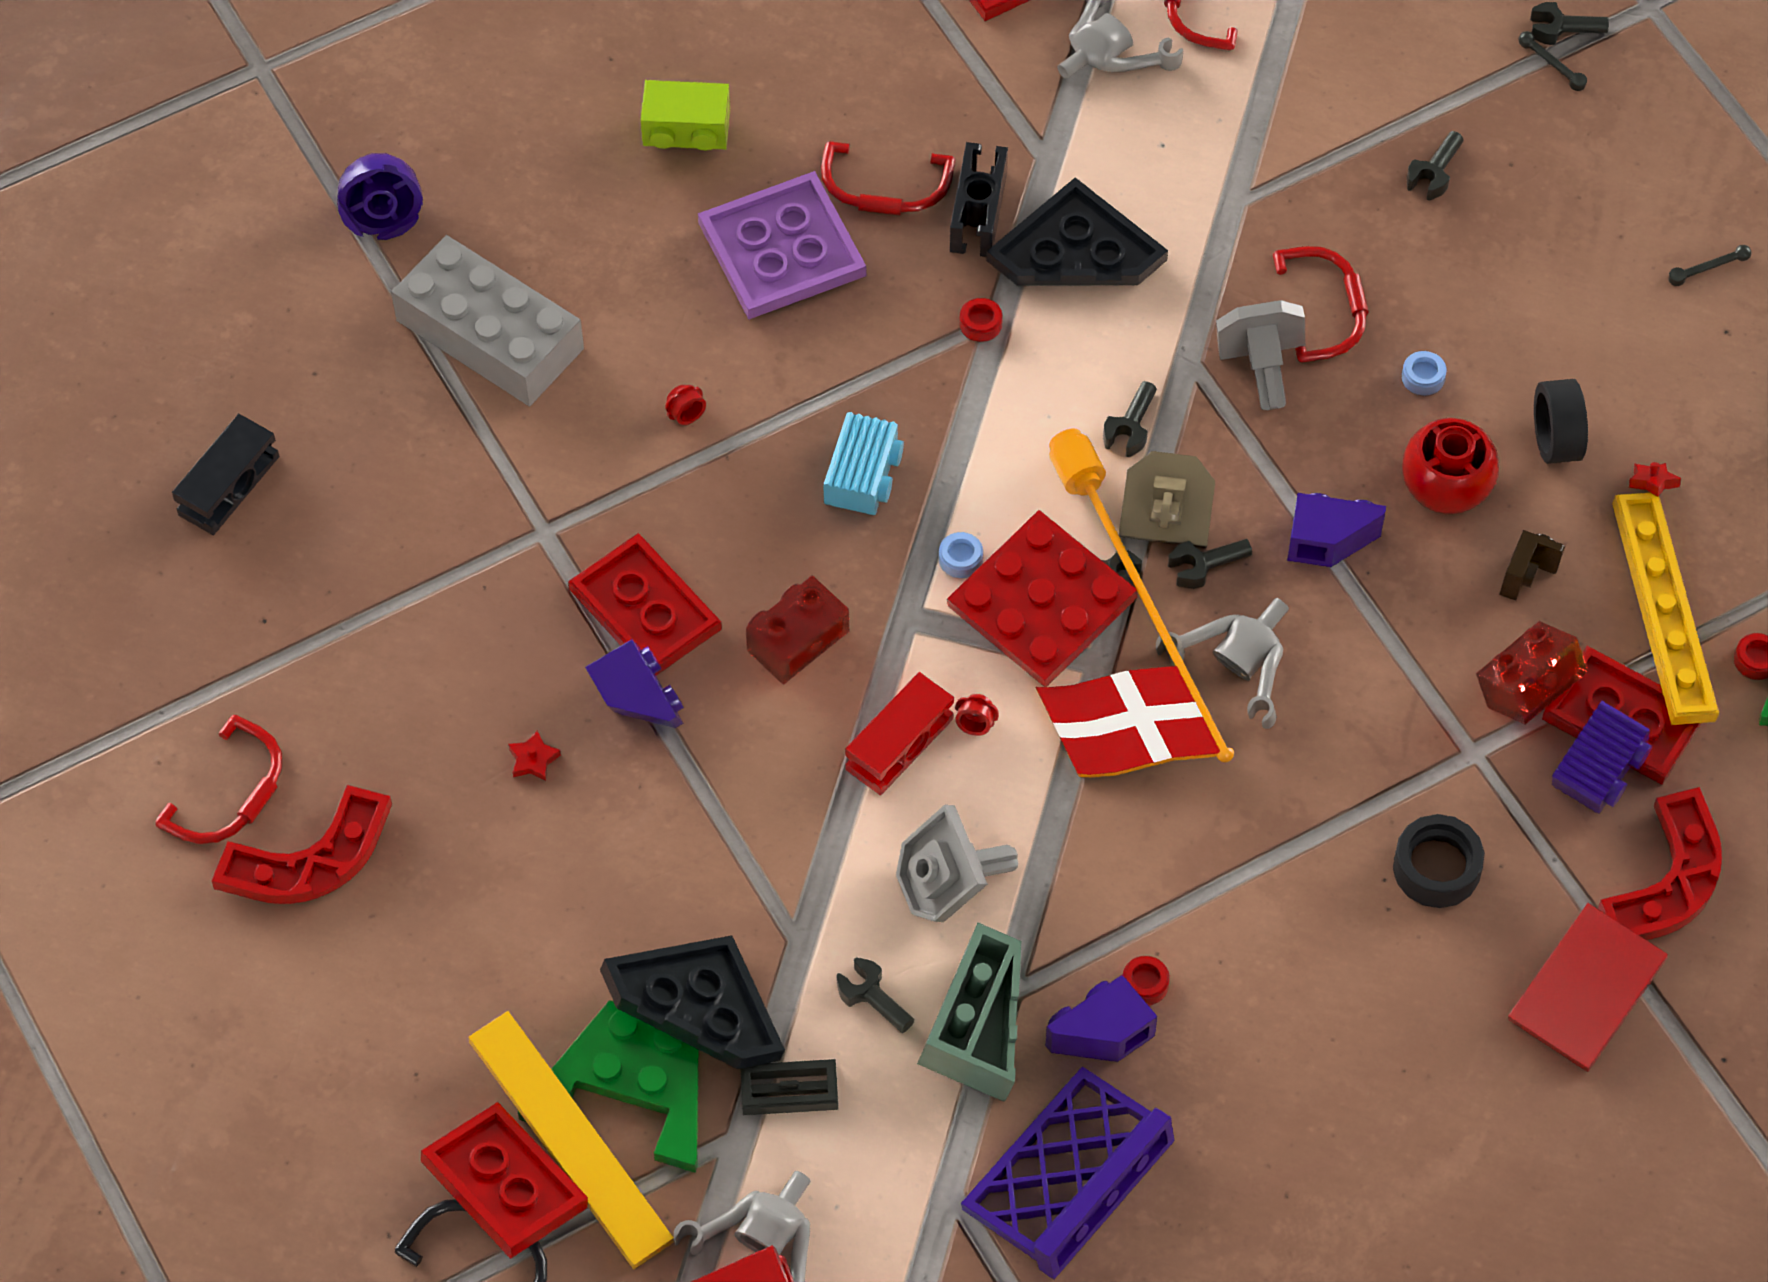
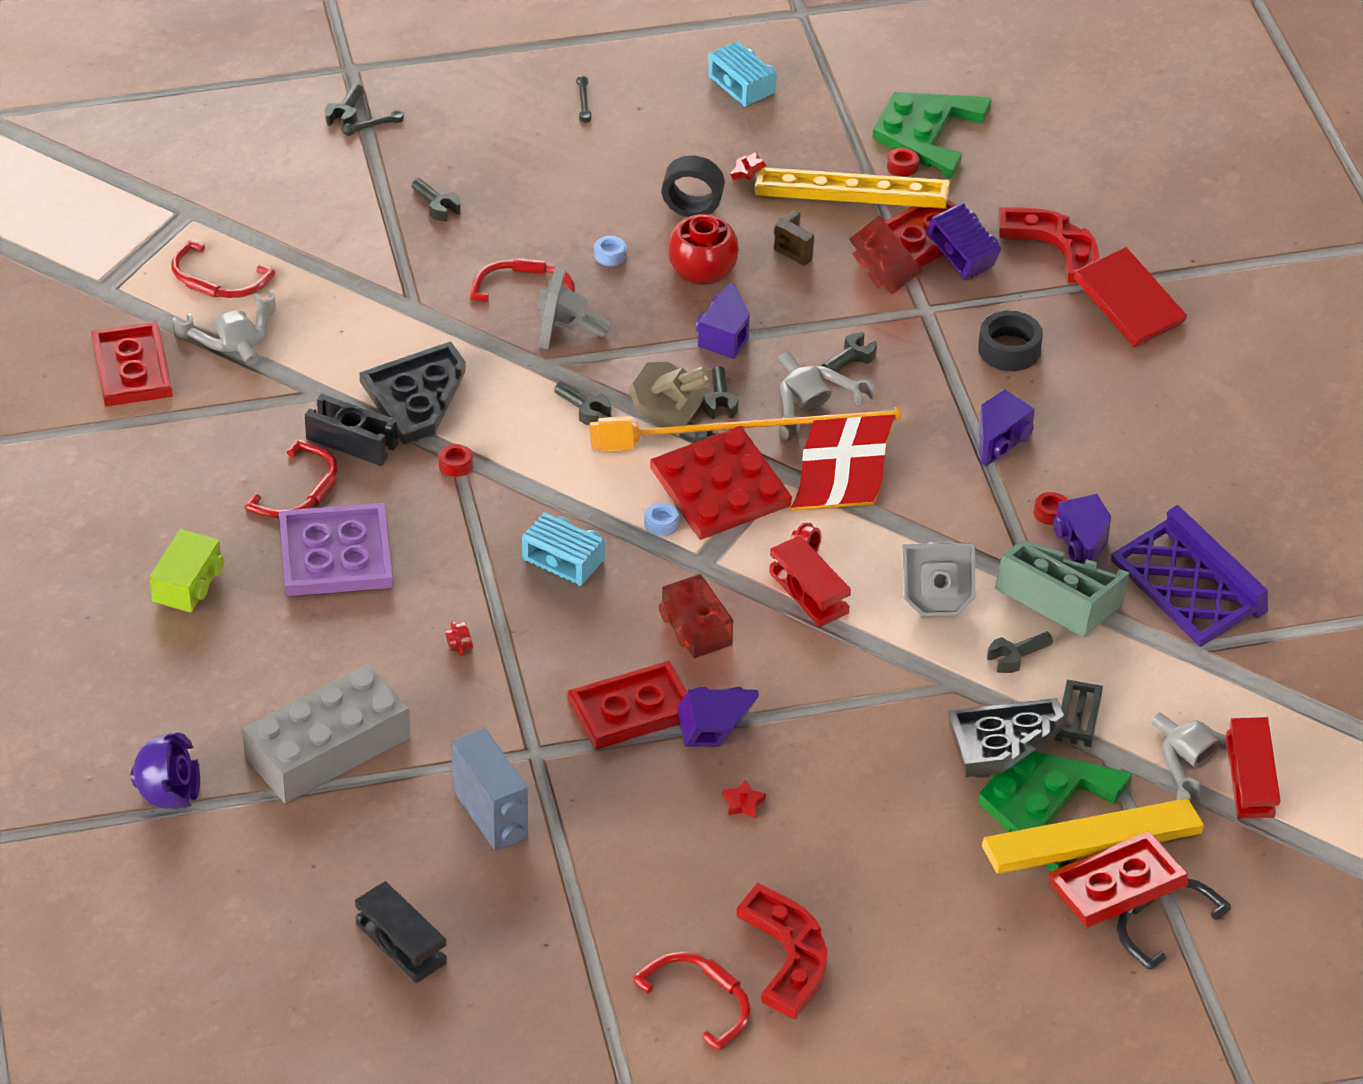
camera: 75 degrees left, 15 degrees down
(435, 491) = (490, 788): none -> sand blue brick
(1262, 883) = (1003, 425): none -> dark purple slope
(1344, 685) = (853, 351): none -> pearl dark grey bar

